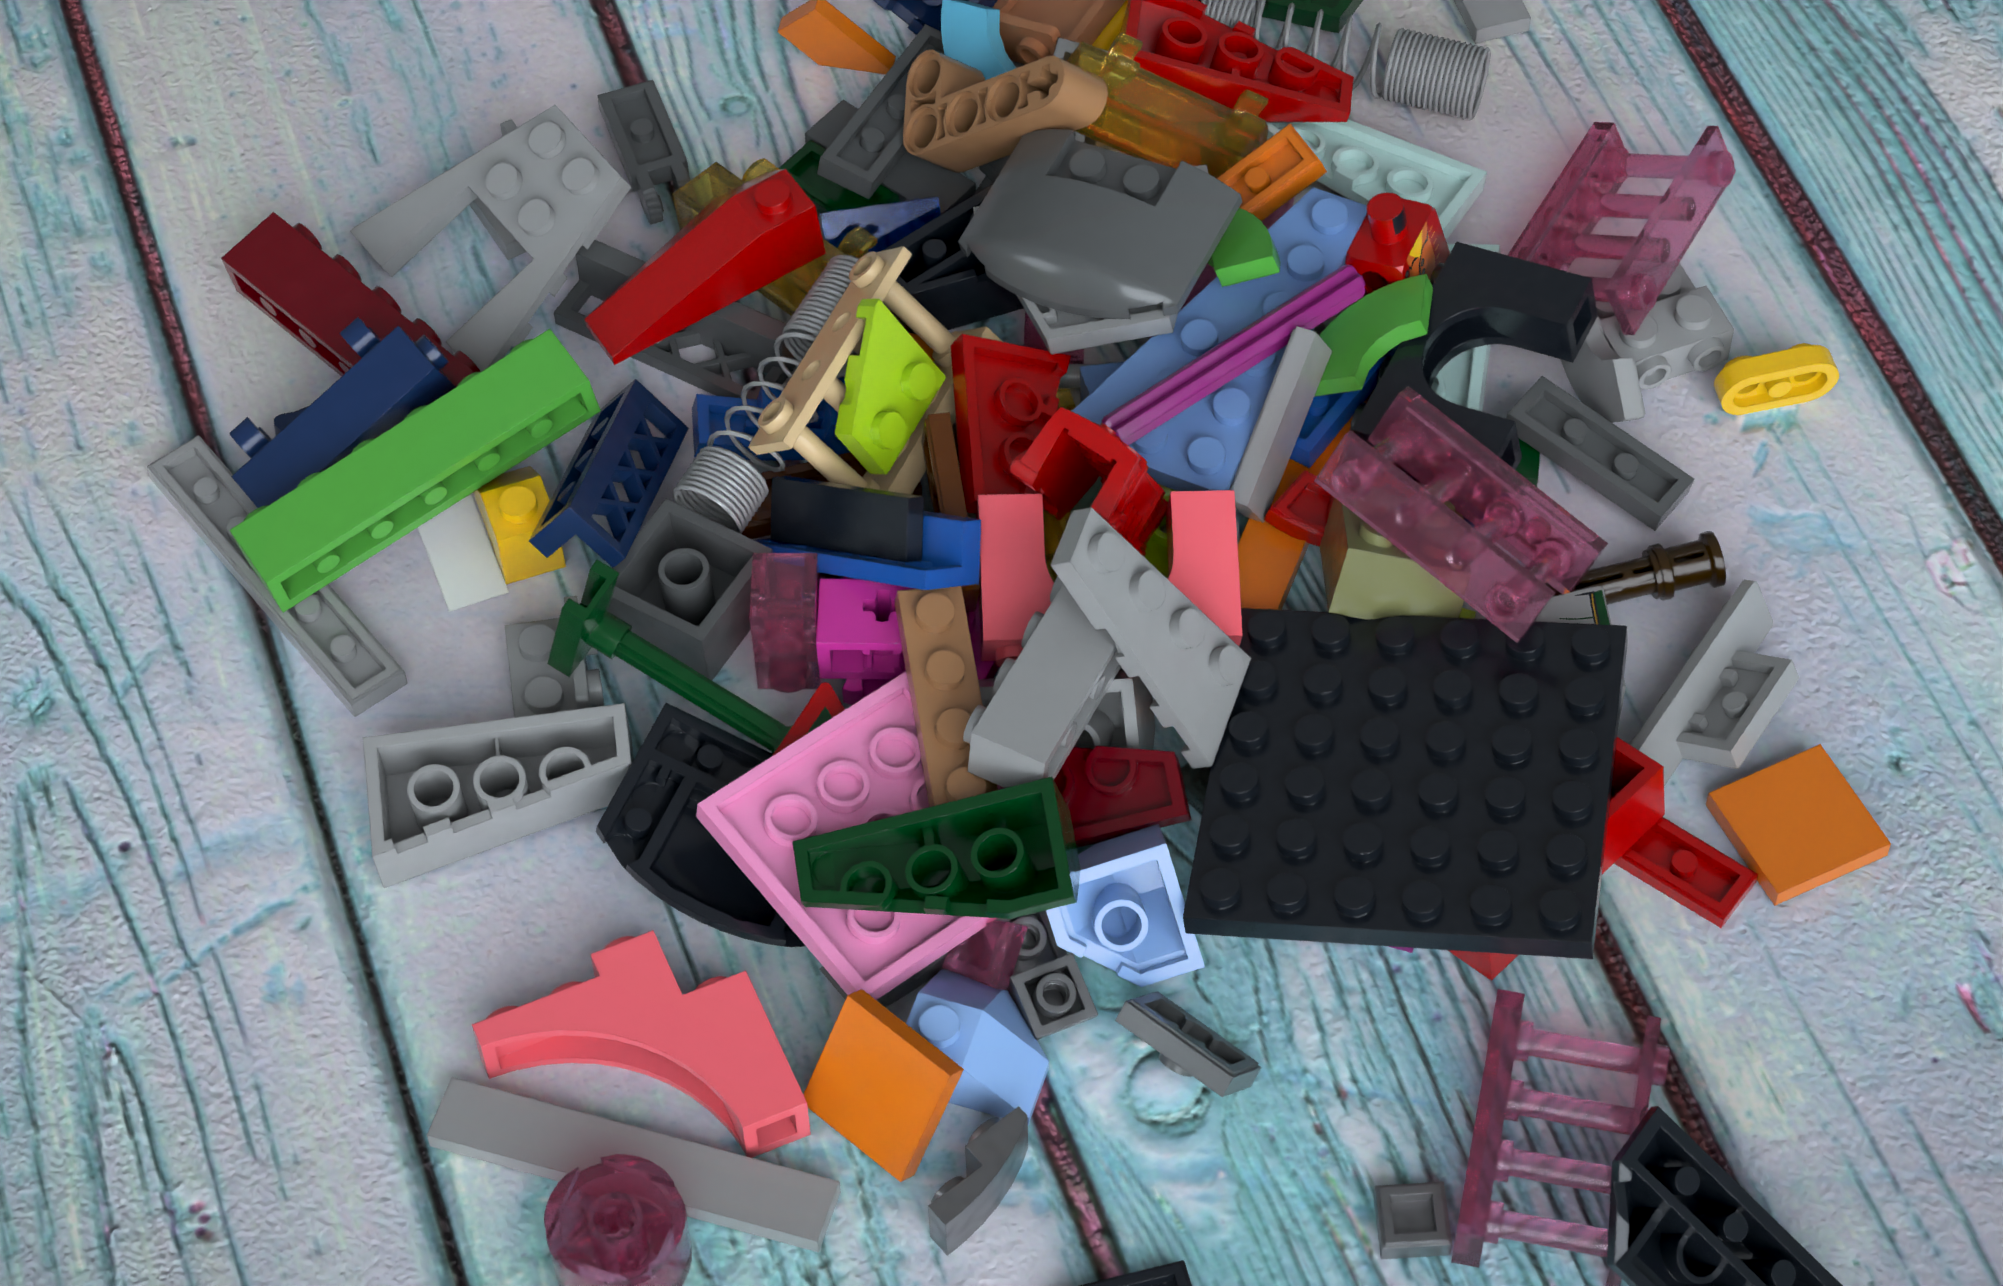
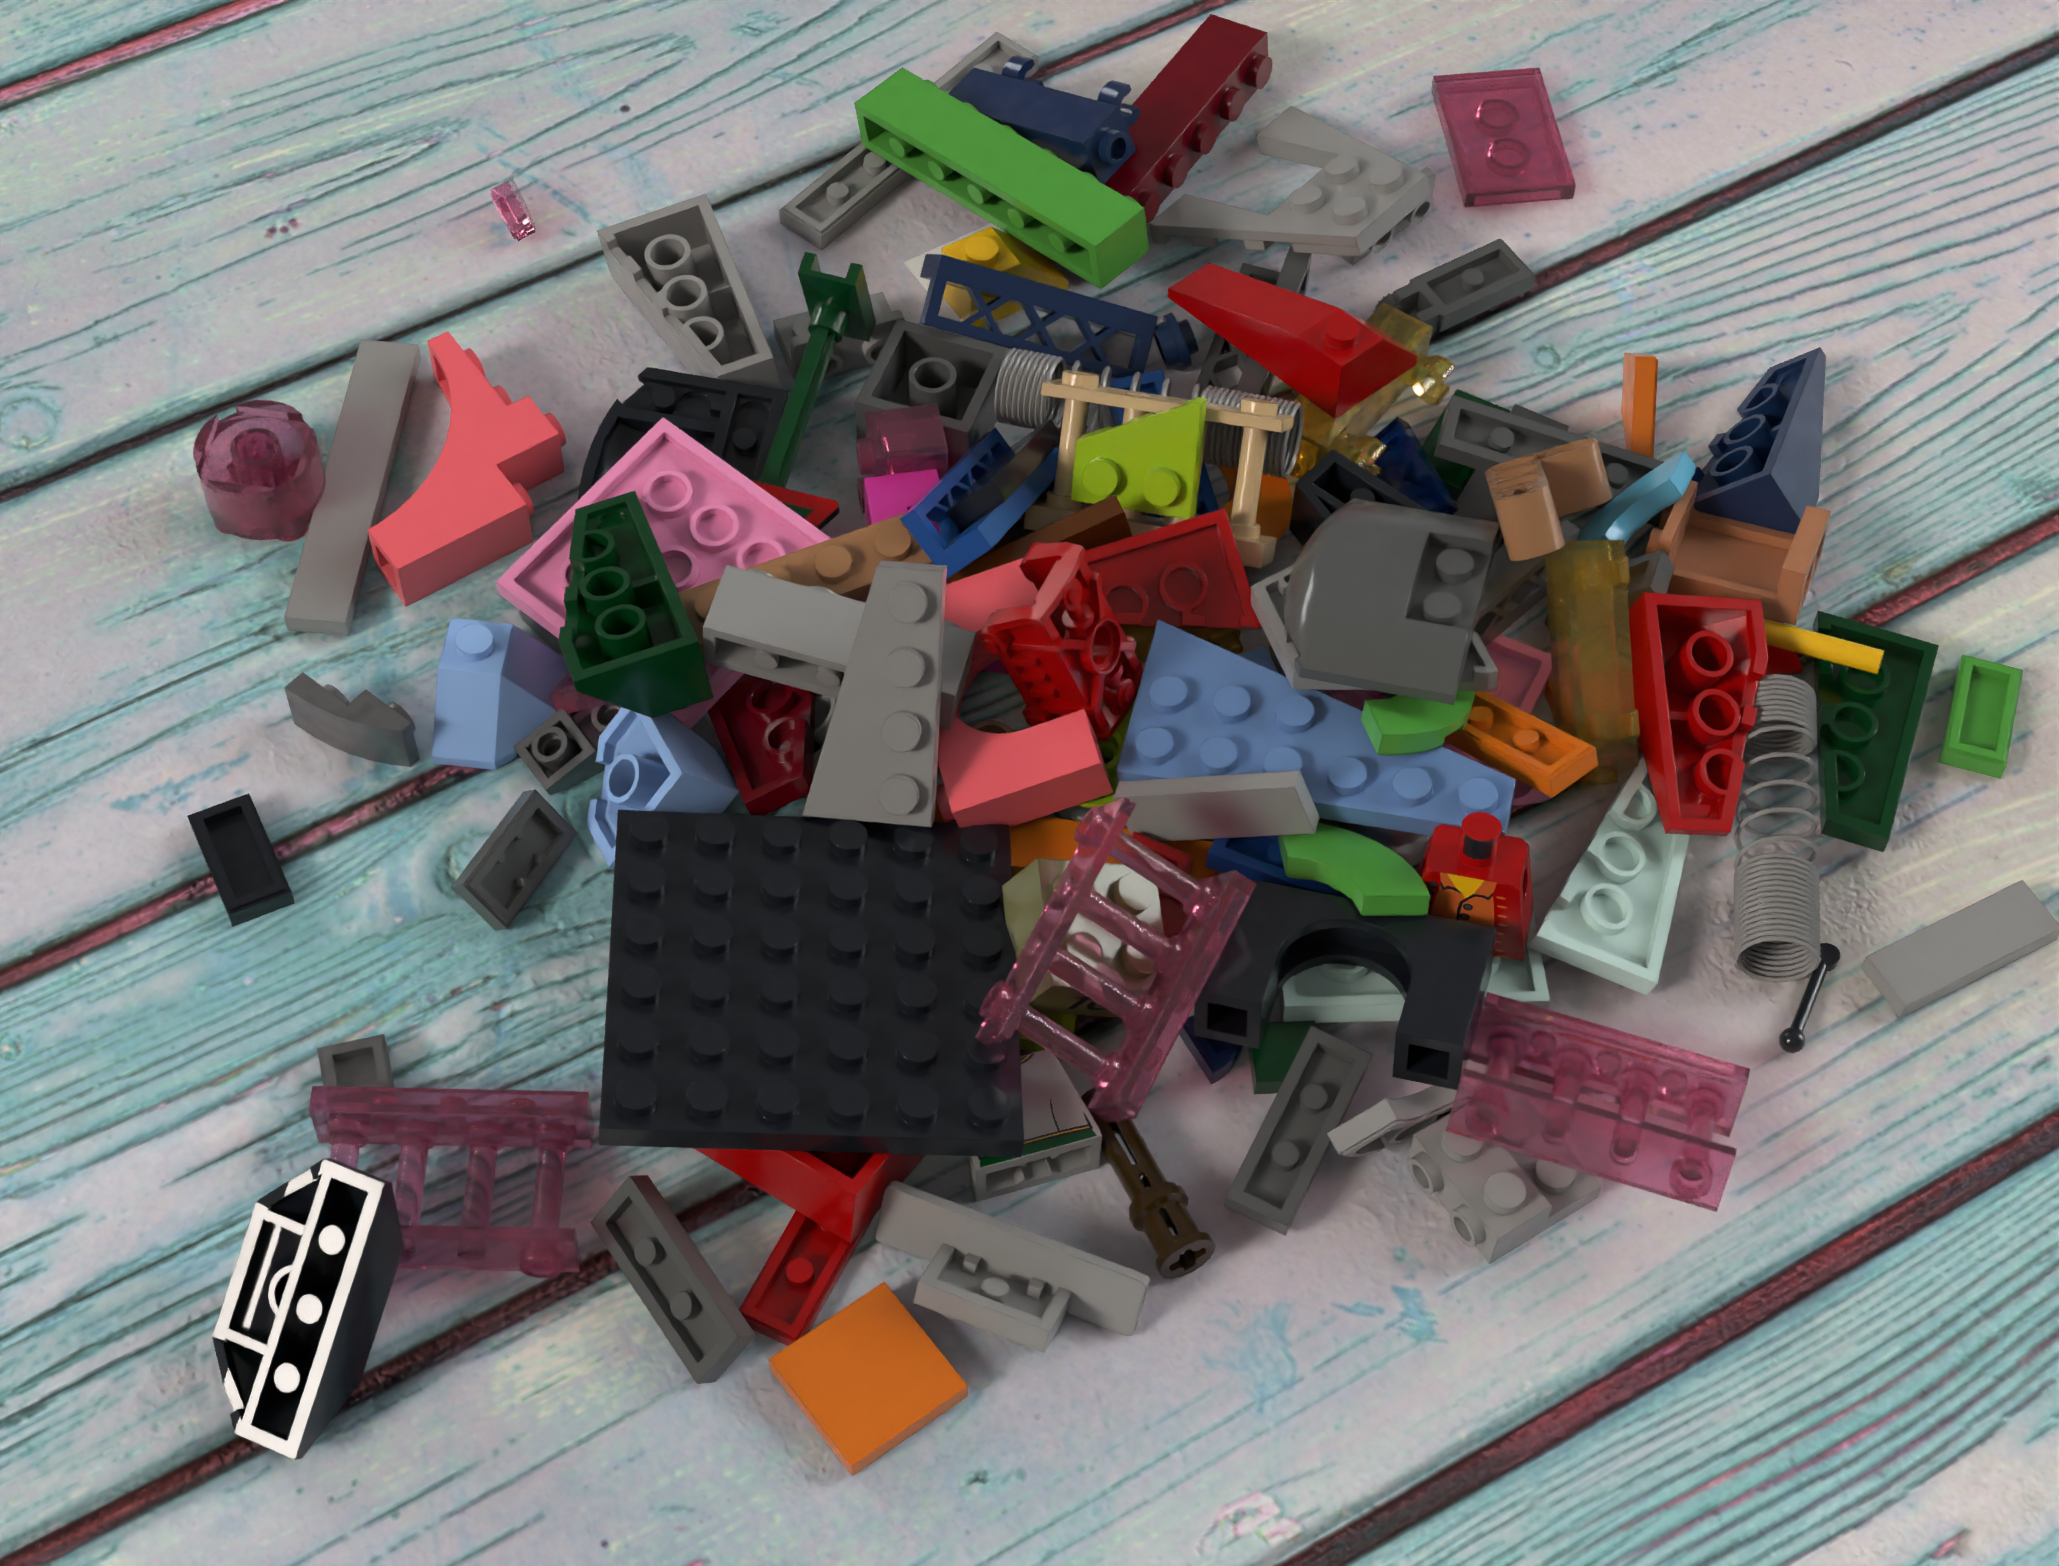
camera: 75 degrees right, 0 degrees up
(264, 958) = (513, 209): none -> clear pink tile
(444, 72) = (1502, 137): none -> clear pink tile
(655, 376) = (1175, 342): none -> dark blue plate
(881, 1085) = (425, 621): orange tile -> none
(1235, 355) = (1266, 737): magenta axle -> none
(1543, 102) = (1792, 1038): none -> black hinge
(1688, 958) = (672, 1279): none -> dark grey plate
(1775, 379) = (1444, 1283): yellow plate -> none

